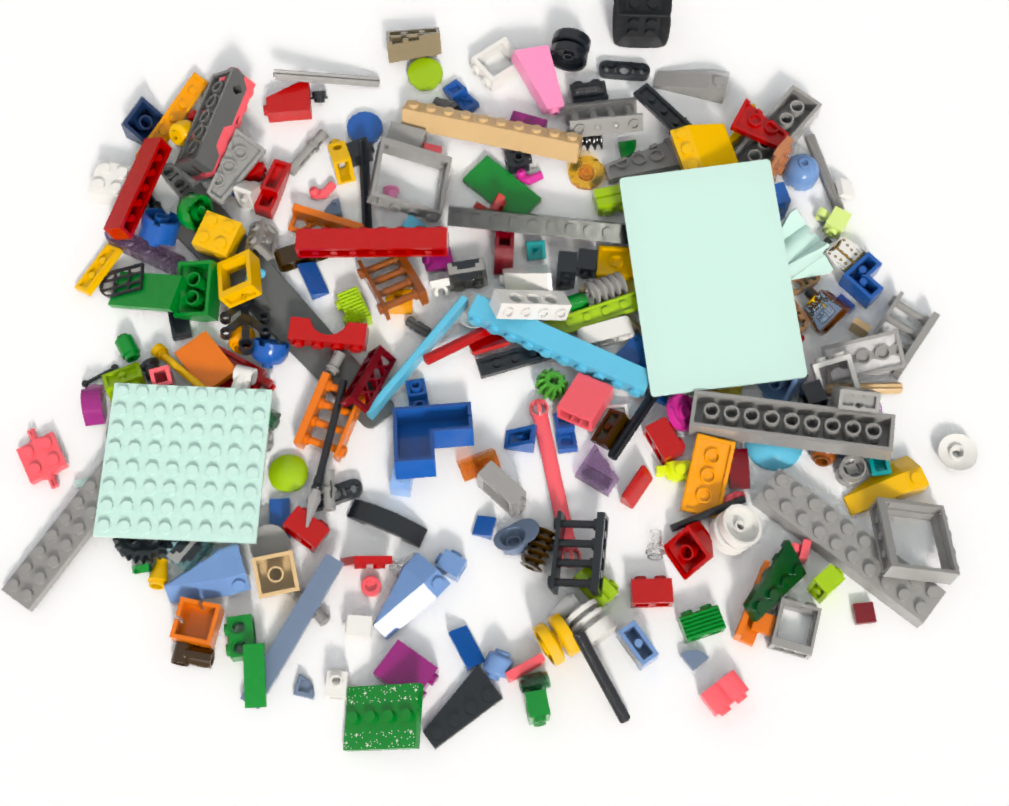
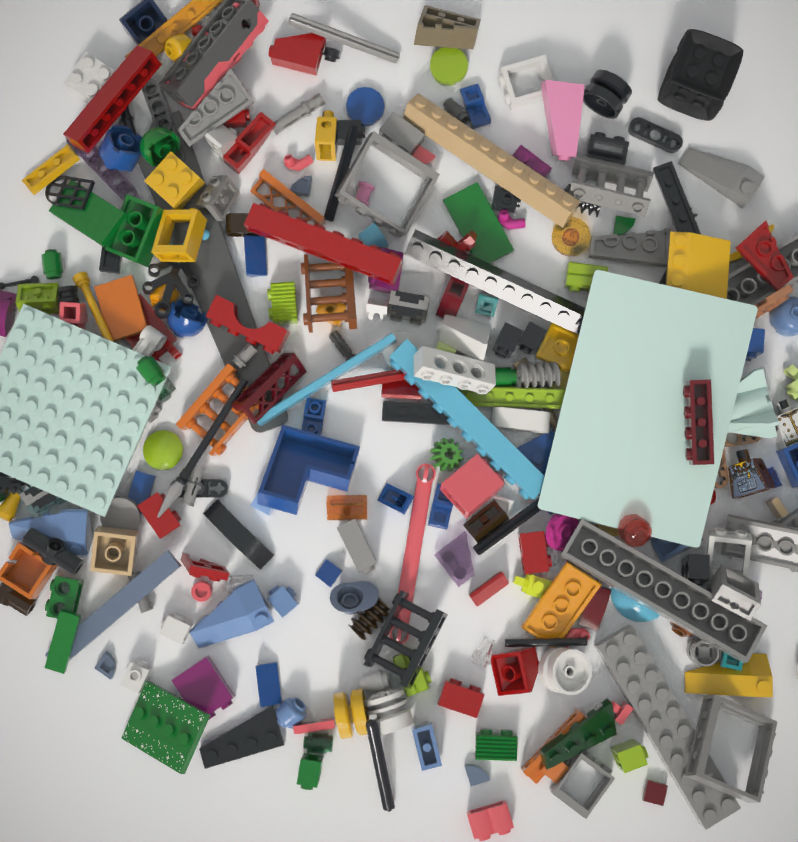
camera: 20 degrees right, 15 degrees up
(217, 592) = (53, 551): none -> black piece
(255, 395) = (151, 370): none -> green brick
(745, 381) = (634, 530): none -> clear red hair
(762, 266) = (700, 422): none -> dark red brick
(883, 387) = (754, 570): tan axle -> none

